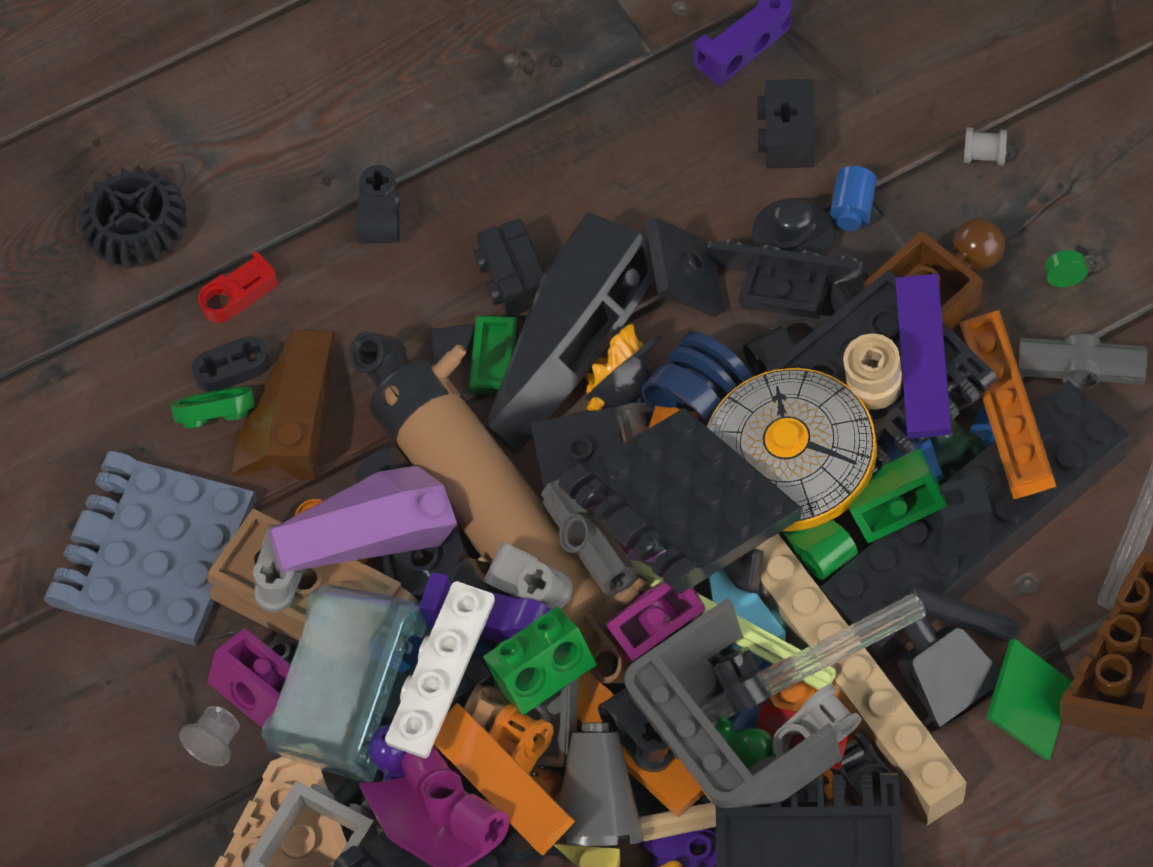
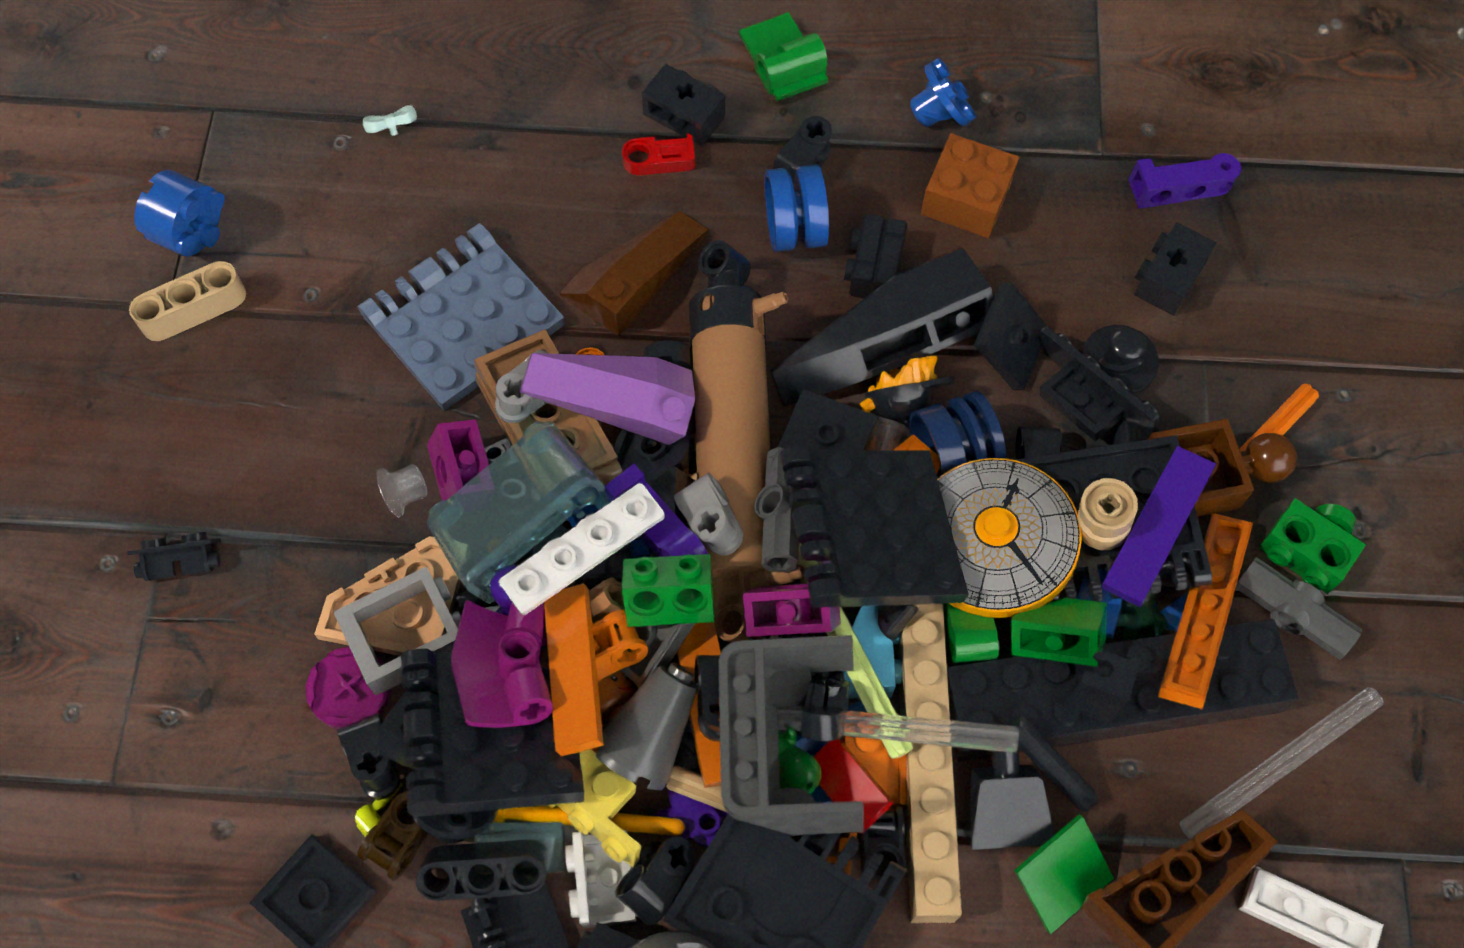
camera: 25 degrees right, 5 degrees up
(131, 231) = (618, 56): black gear -> none
(197, 409) = (568, 229): green plate -> none
(229, 227) = (683, 104): none -> black brick
(231, 364) = (615, 209): black beam -> none
(295, 129) = (784, 57): none -> green piece
(409, 263) = (796, 208): none -> blue wheel
(446, 338) = (796, 288): black tile -> none
(474, 85) = (941, 98): none -> blue plate
(491, 353) = (816, 314): green tile -> none
(554, 152) = (969, 185): none -> dark orange brick
(815, 716) = (867, 783): light grey piece -> none
(853, 197) = (1189, 358): blue brick -> none
(968, 196) = (1288, 412): none -> orange axle
(985, 146) = (1329, 379): light grey bush -> none
(1060, 292) = (1315, 538): none -> green brick

